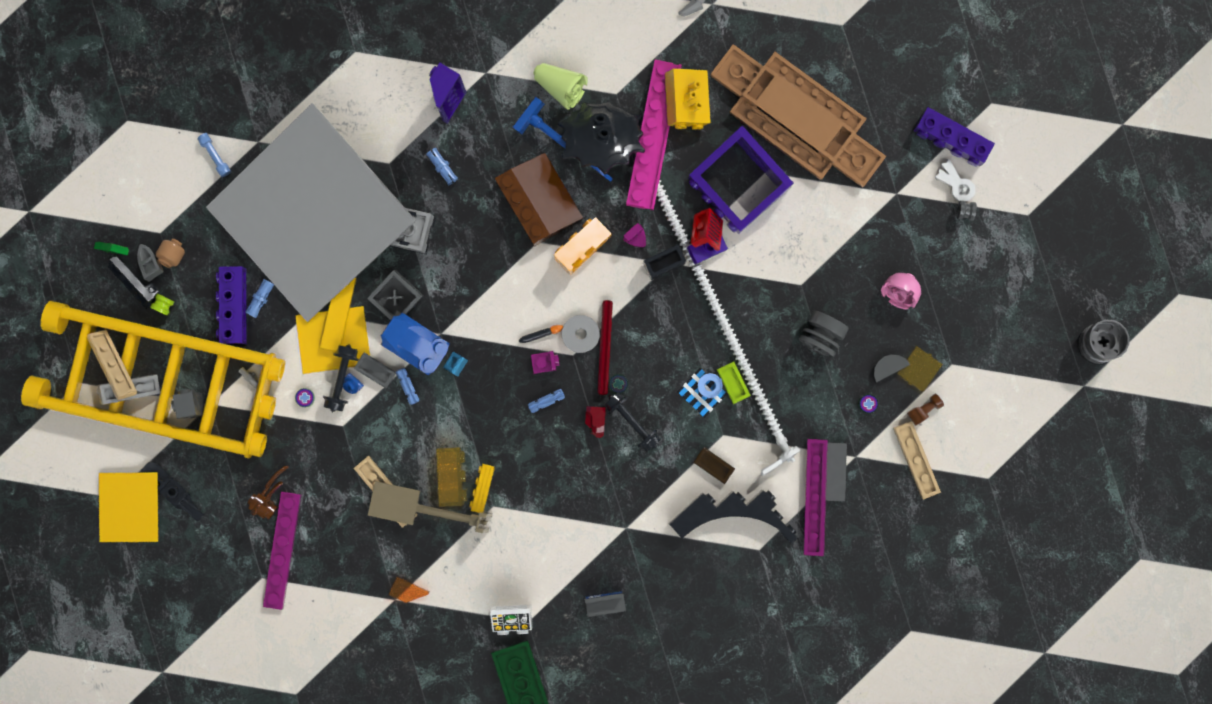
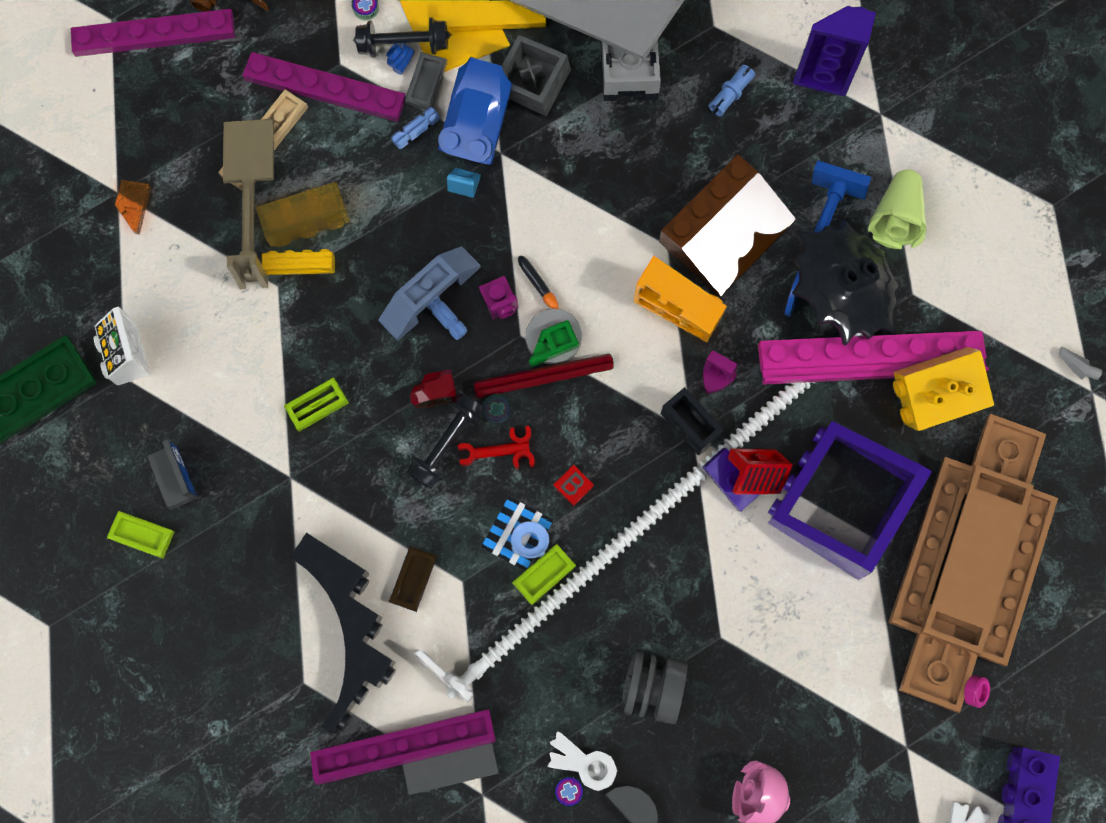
camera: 80 degrees right, 10 degrees down
(358, 441) = (324, 86): none -> magenta plate
(528, 407) = (424, 288): none -> sand blue slope
(578, 484) = (300, 425): none -> lime tile
(586, 334) = (554, 342): none -> green tile
(637, 632) = (140, 534): none -> lime tile
(648, 376) = (519, 447): none -> red bar
(682, 348) = (573, 485): none -> red tile
(860, 384) = (595, 769): none -> white piece
(876, 141) = (977, 691): none -> dark pink tile

